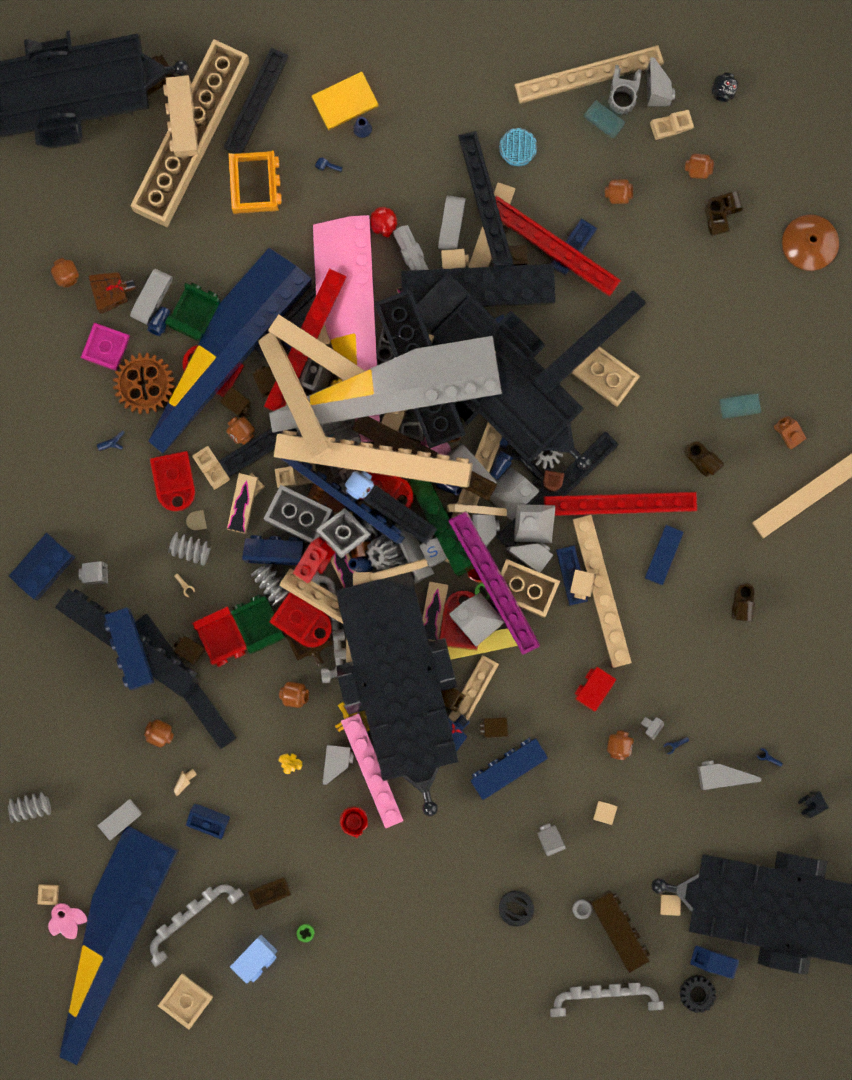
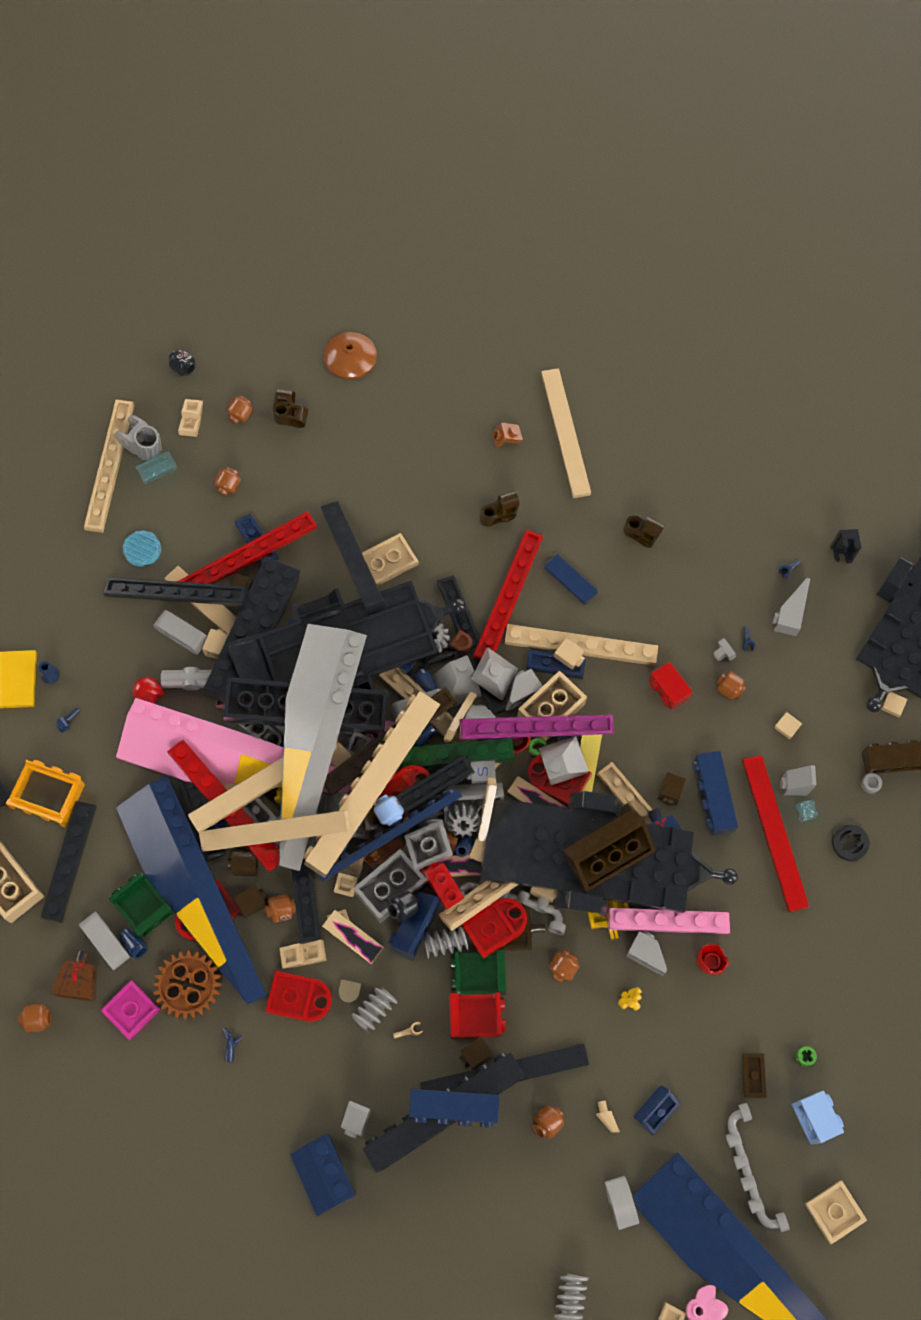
camera: 70 degrees left, 15 degrees down
(205, 232) = (68, 862): none -> black plate
(281, 534) = (403, 905): none -> black head
(403, 692) = (609, 850): none -> dark brown slope
(496, 836) = (775, 834): none -> red tile
(527, 858) = (807, 810): none -> clear light blue wheel
(658, 85) = (151, 411): light grey slope -> none
(740, 406) = (465, 465): clear light blue plate -> none

